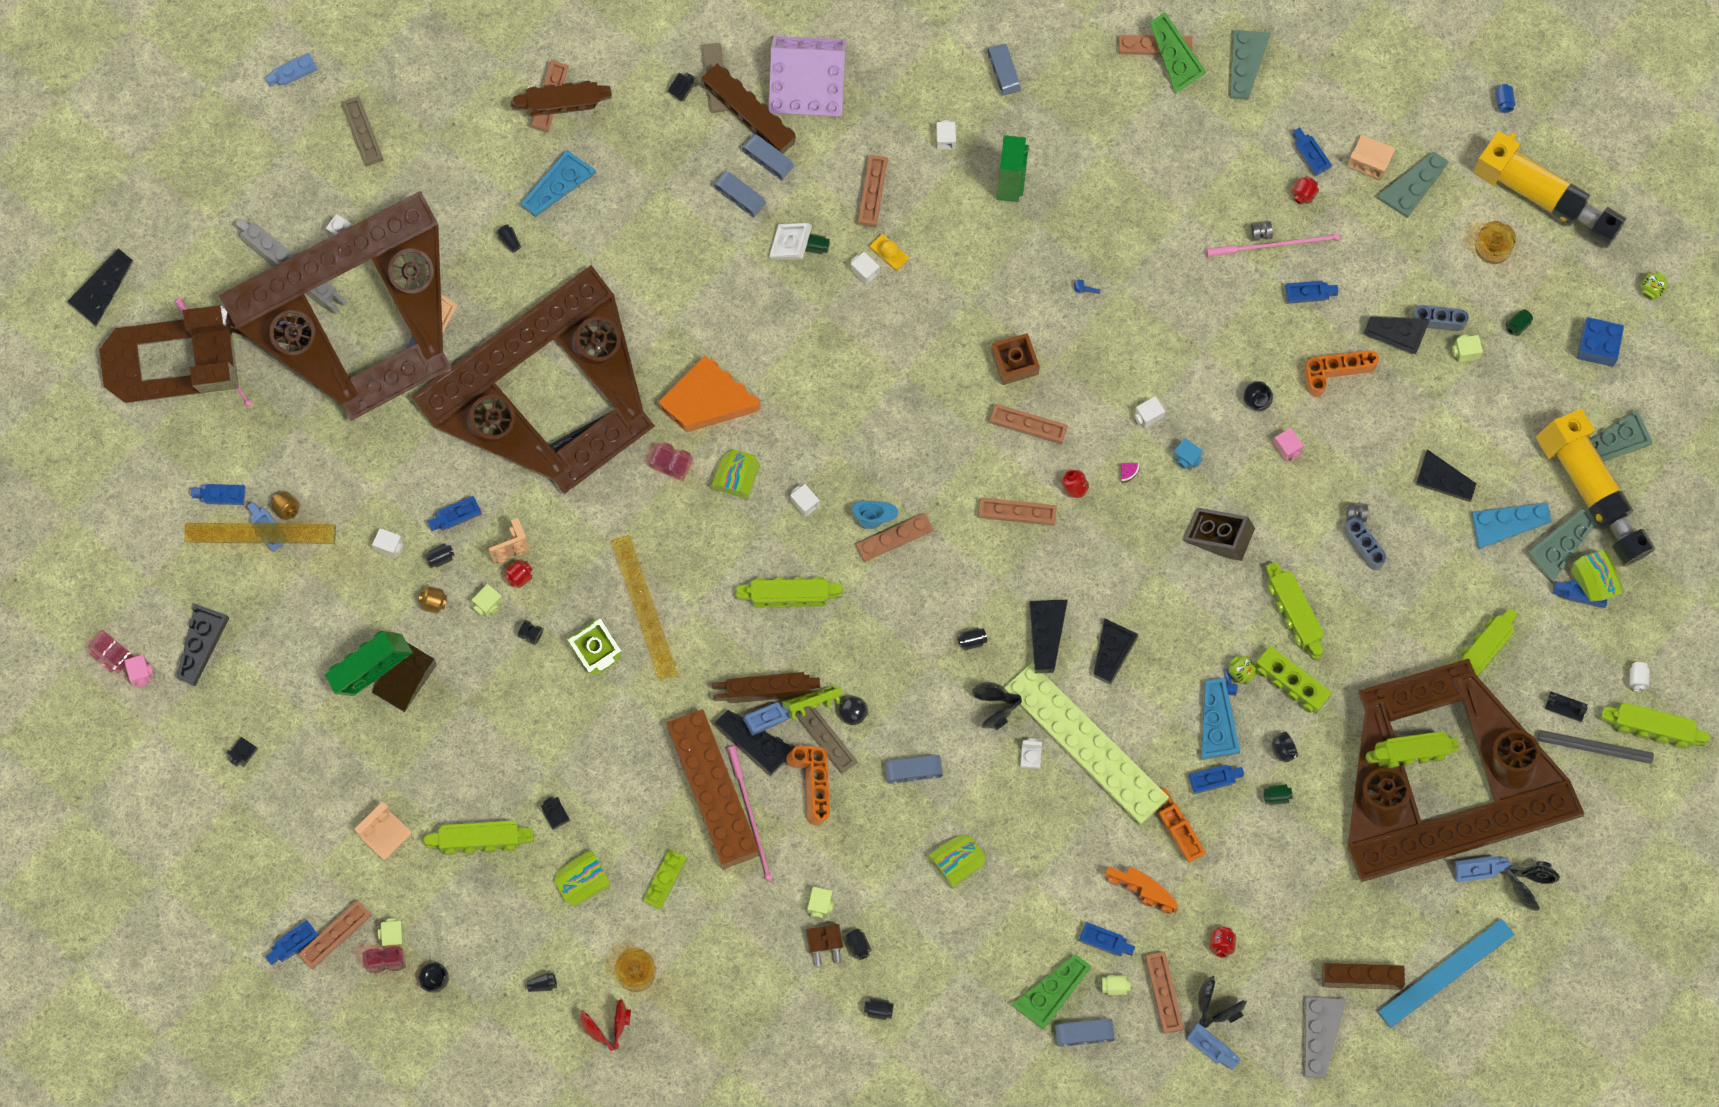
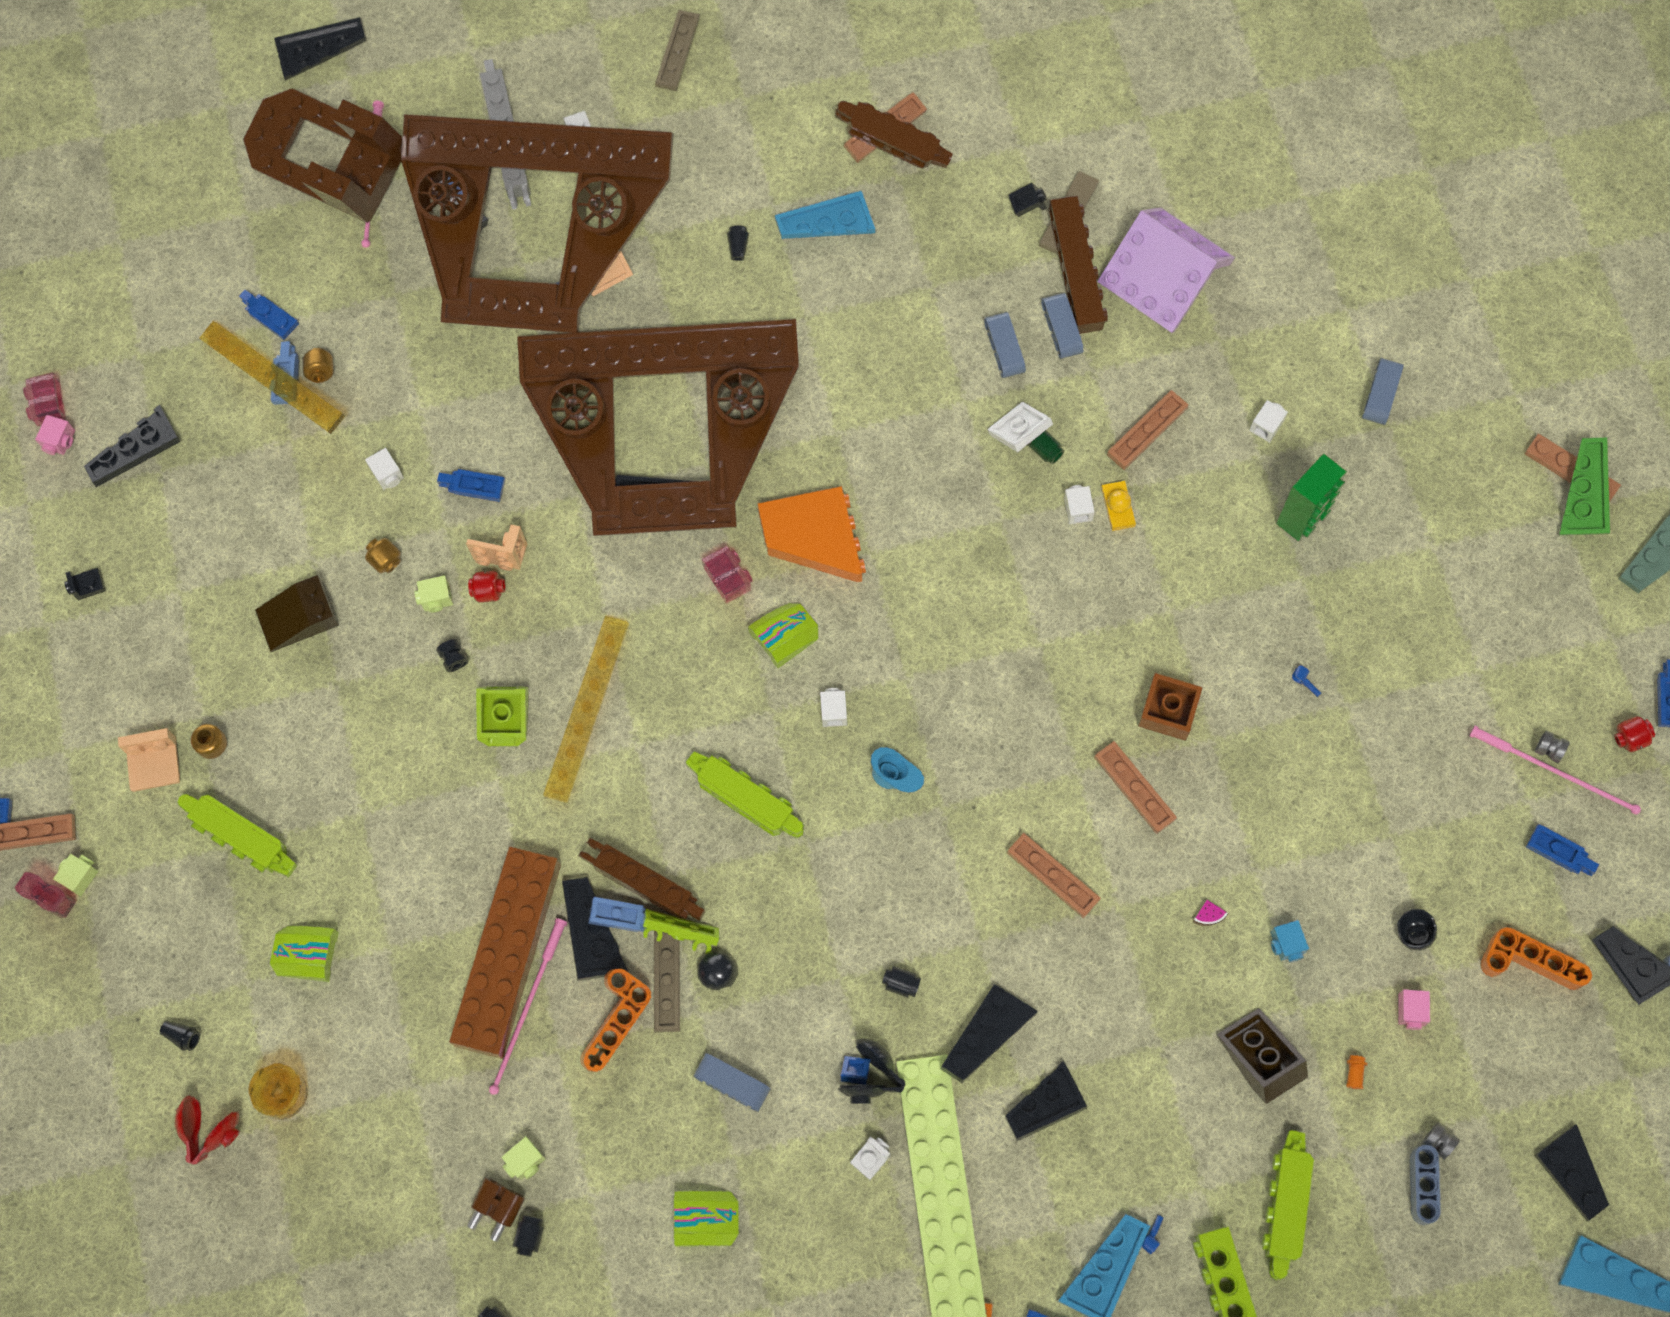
camera: 40 degrees right, 0 degrees up
(368, 663) = (261, 576): green brick -> none
(413, 793) = (208, 741): none -> pearl gold head
(436, 973) = (70, 951): black hair -> none
(439, 555) = (424, 515): black brick -> none
(554, 812) = (332, 861): black bracket -> none
(665, 879) = (387, 1014): lime plate -> none
(894, 537) = (900, 812): nougat plate -> none
(983, 710) = (855, 1070): none -> blue tile
(1075, 483) = (1138, 888): red head -> none
(1149, 412) = (1278, 864): white brick -> none
(1242, 669) = (1177, 1230): lime head -> none
(1280, 505) = (1356, 1072): none -> orange pin

